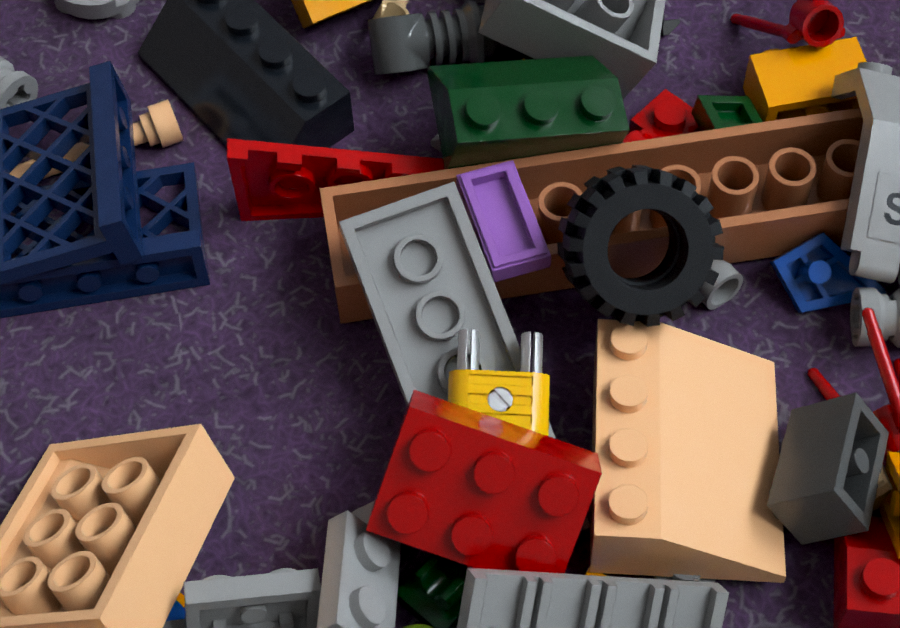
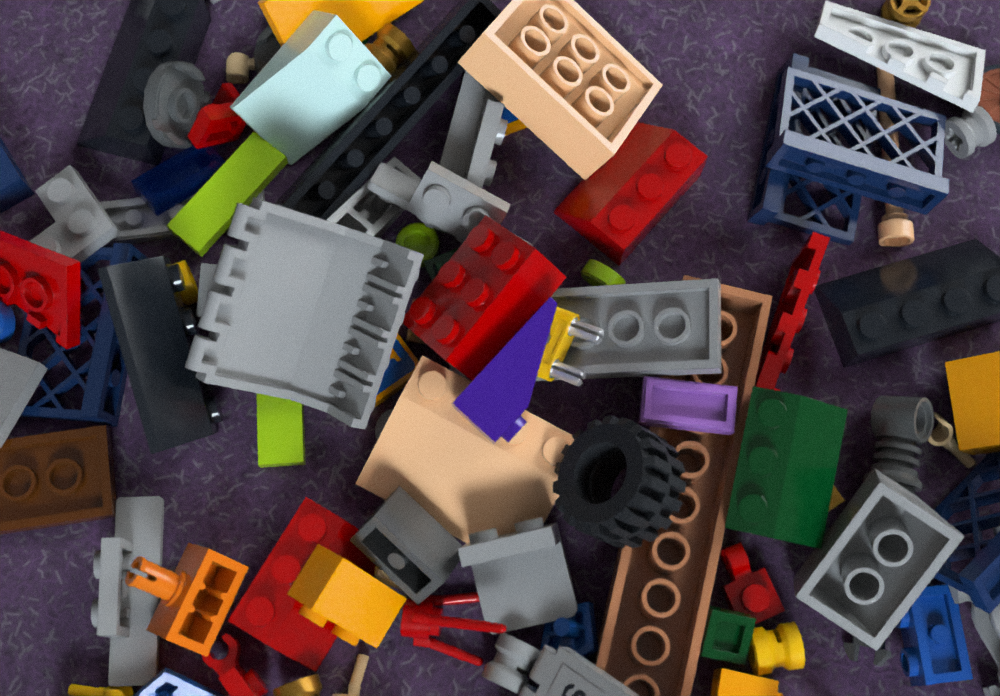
camera: 110 degrees right, 15 degrees up
(252, 404) = (632, 190): none -> red slope
(365, 403) = (599, 274): none -> lime tile
(583, 397) = (505, 385): none -> dark purple slope
(707, 73) = (776, 649): none -> yellow wheel
(726, 286) = (597, 558): light grey hinge -> none
(785, 338) = (521, 574): none -> light grey bracket

